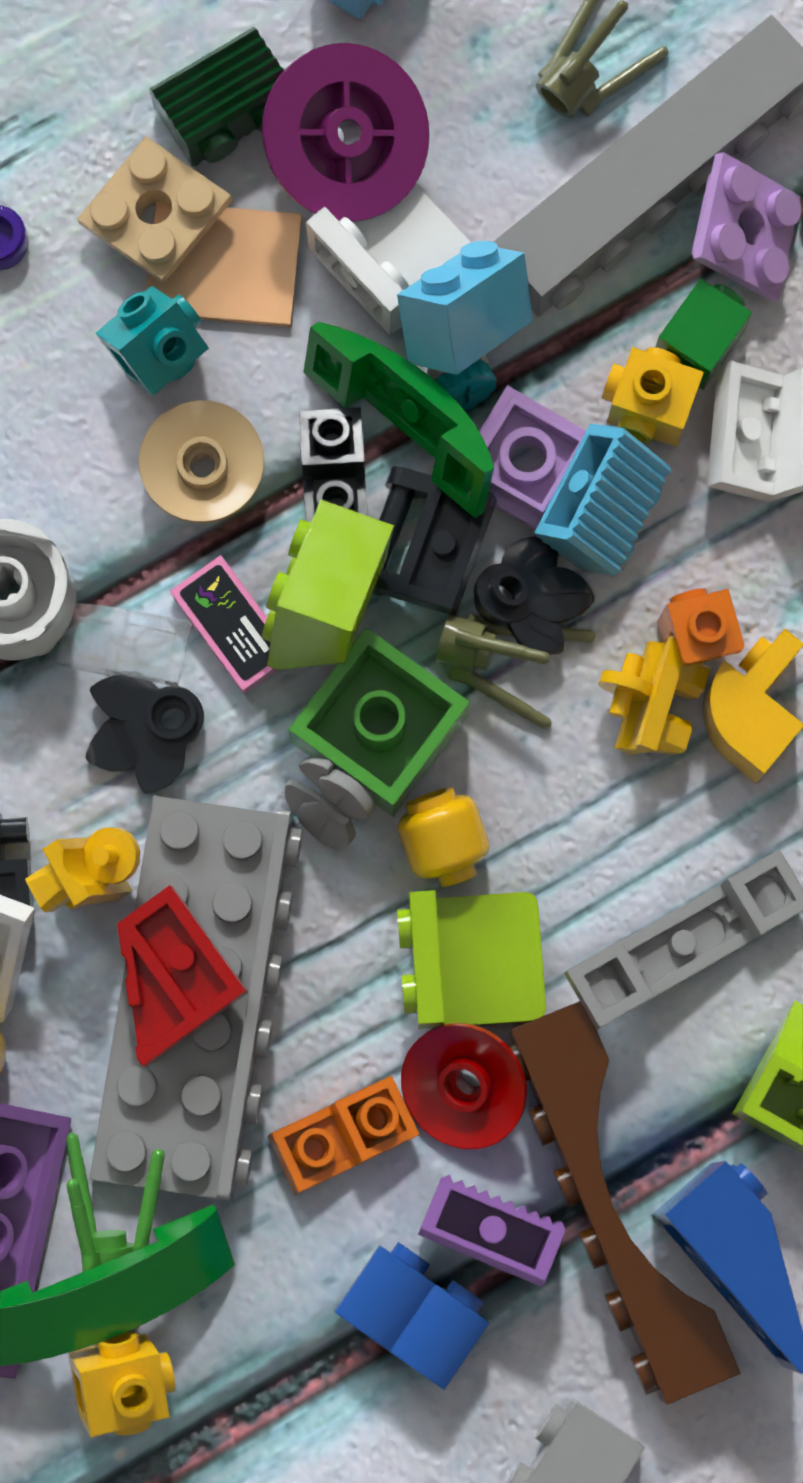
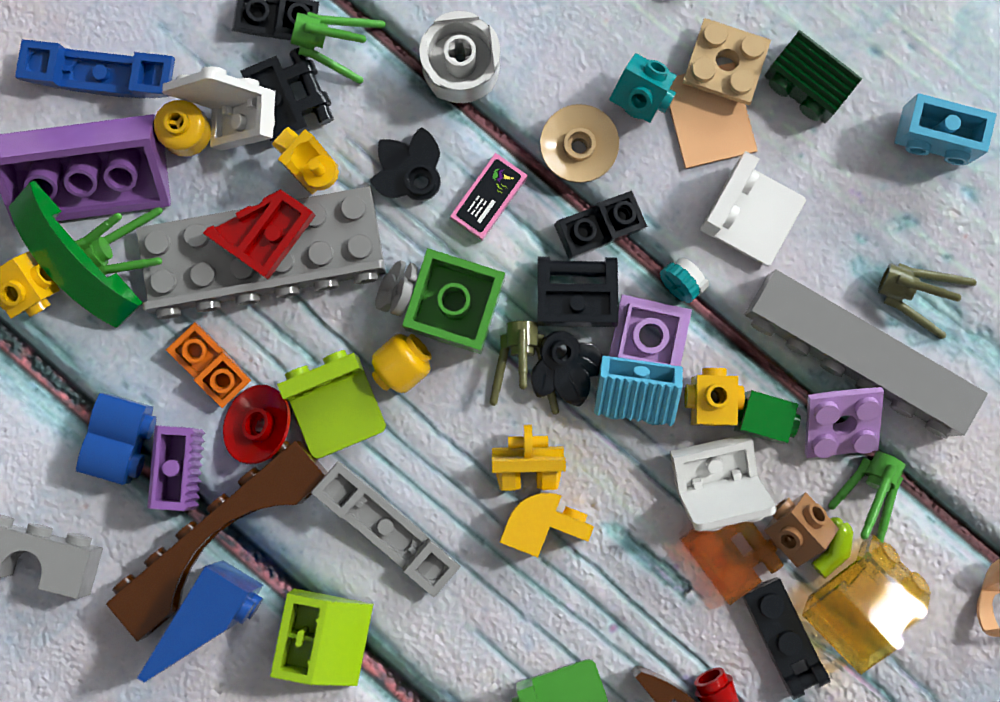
camera: 70 degrees right, 5 degrees up
(125, 643) = (454, 139): clear slope -> none
(325, 587) = (521, 240): lime slope -> none
(359, 368) = (670, 217): green slope -> none
(381, 128) = (820, 181): magenta piece -> none
(465, 307) = (727, 266): medium azure brick -> none
(701, 625) = (578, 475): orange bracket -> none

